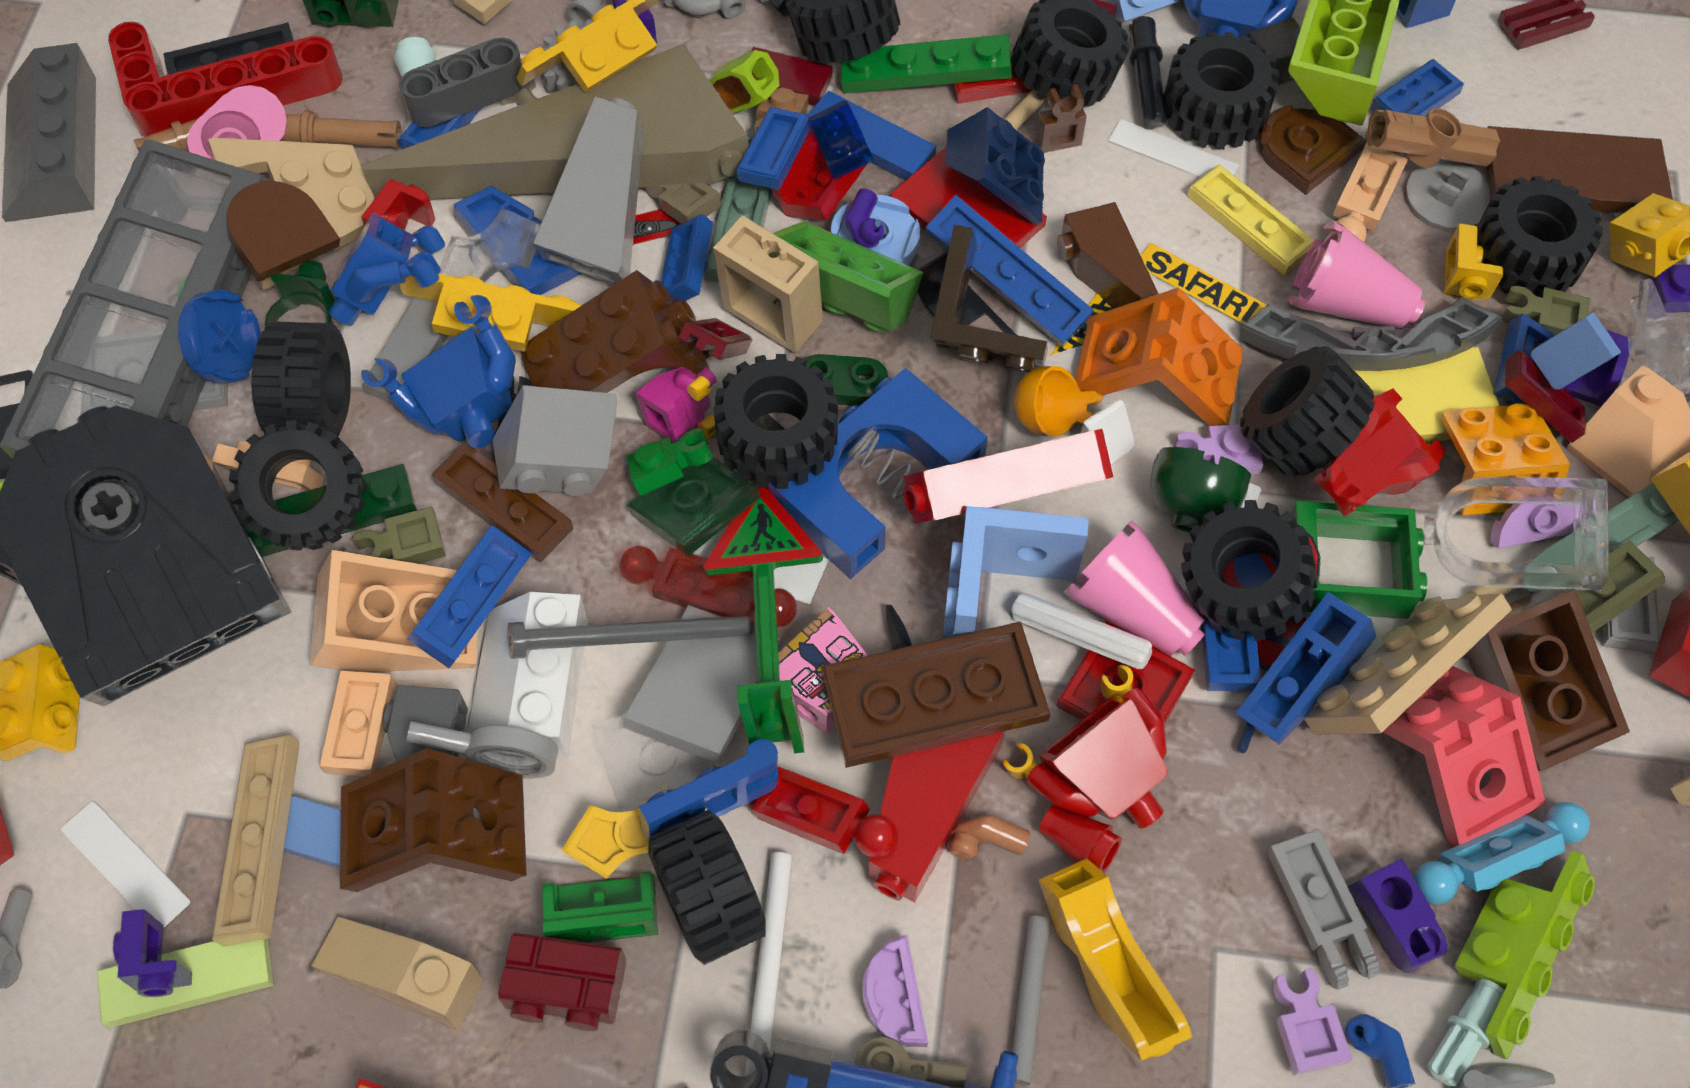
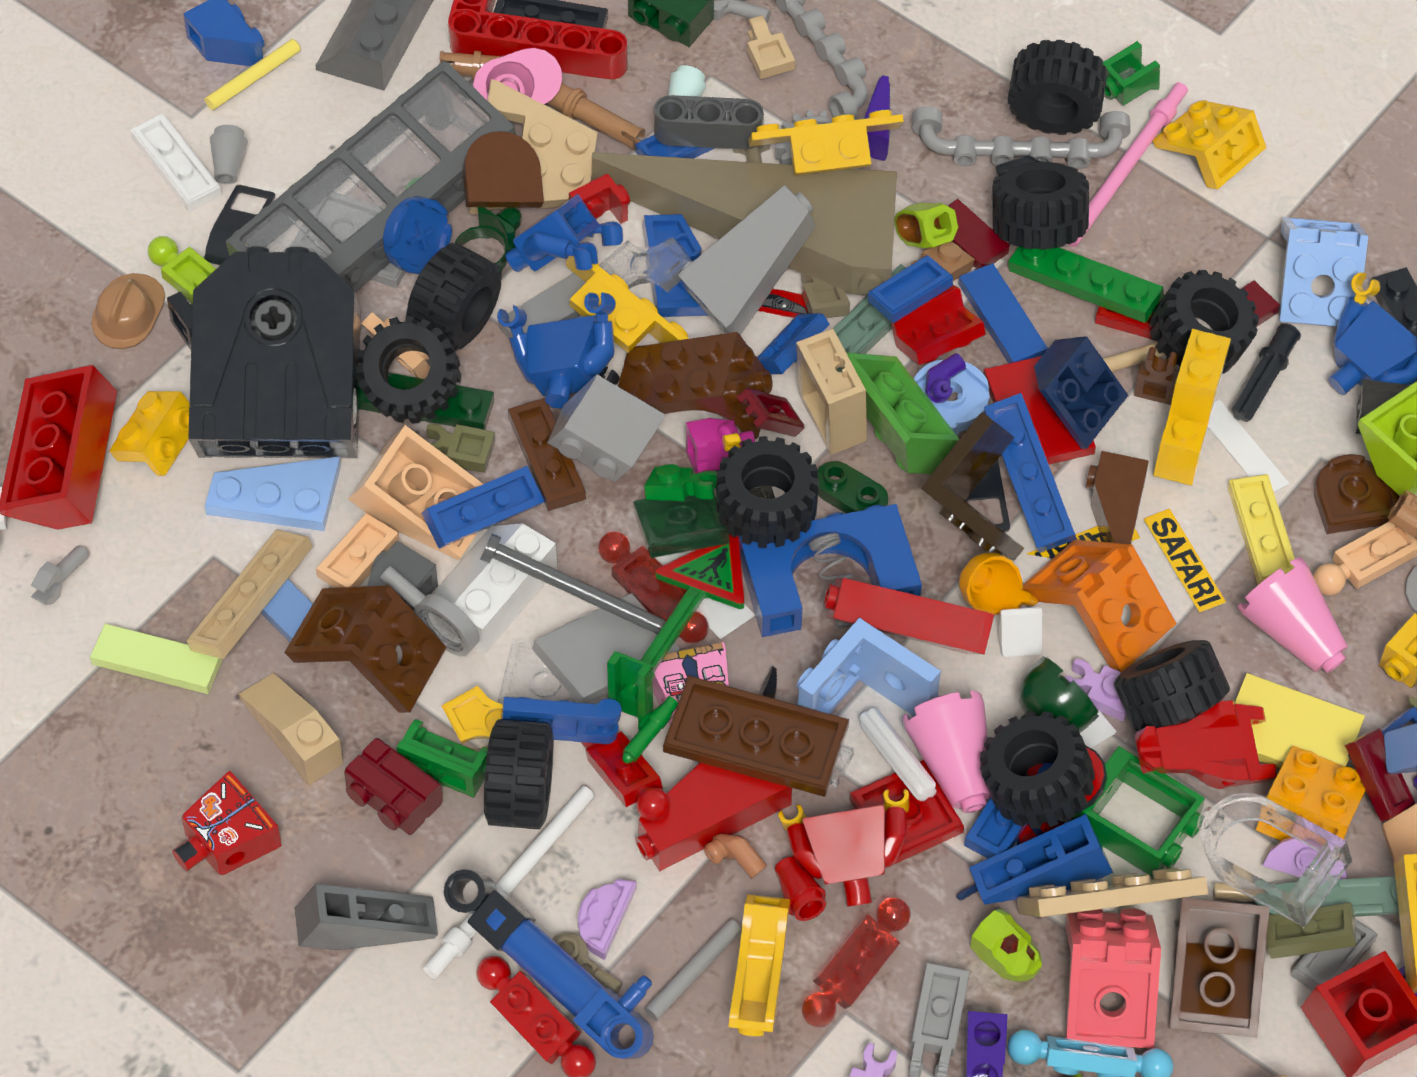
camera: 30 degrees right, 5 degrees down
(124, 864) = (156, 569): white sticker -> none
(139, 956) = (136, 628): dark purple bracket -> none
(221, 702) = (277, 494): none -> light blue wing
(814, 750) = (648, 729): none -> green piece
(840, 139) = (968, 307): clear blue bracket -> none
(1122, 120) = (1191, 407): none -> yellow arch
(1195, 888) = (856, 962): none -> clear red plate
(1220, 90) = (1312, 390): black tyre -> none
(1330, 779) = (1006, 947): none -> lime rock
(1376, 348) = (1282, 675): dark grey tile -> none

